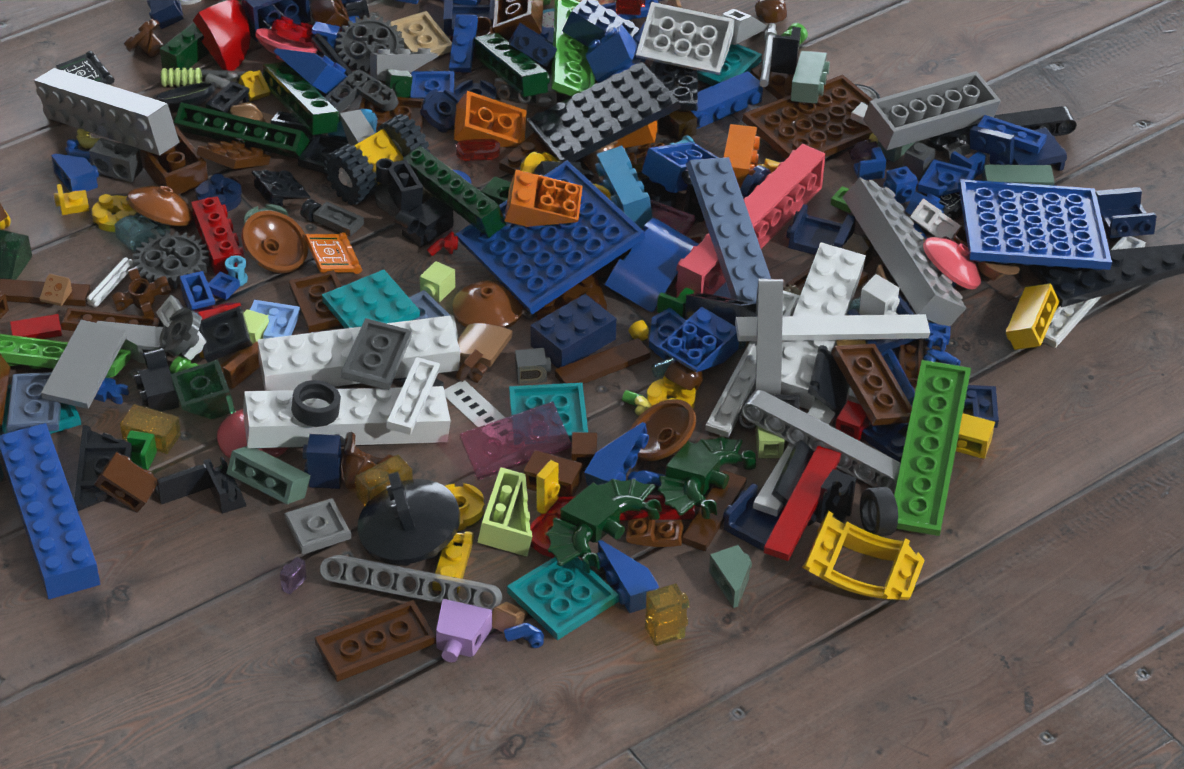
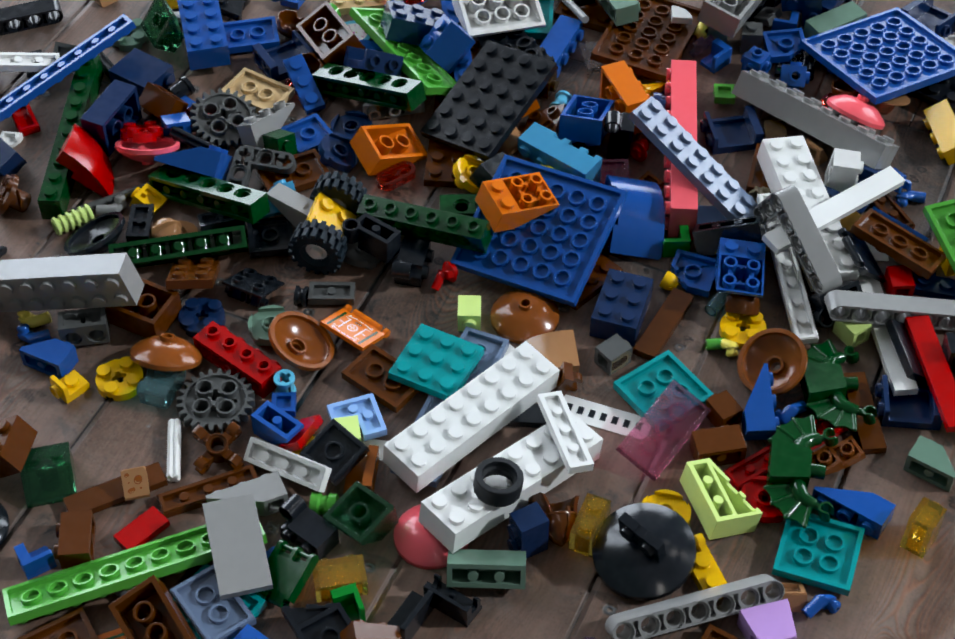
camera: 30 degrees left, 5 degrees up
(108, 404) = (288, 573): none -> dark green plate
(181, 332) = (314, 471): dark grey plate -> none
(317, 526) = (565, 596): light grey plate -> none
(376, 354) = (504, 408): dark grey plate -> none
(547, 486) = (739, 461): yellow plate -> none
(934, 220) = (811, 83): white slope -> none

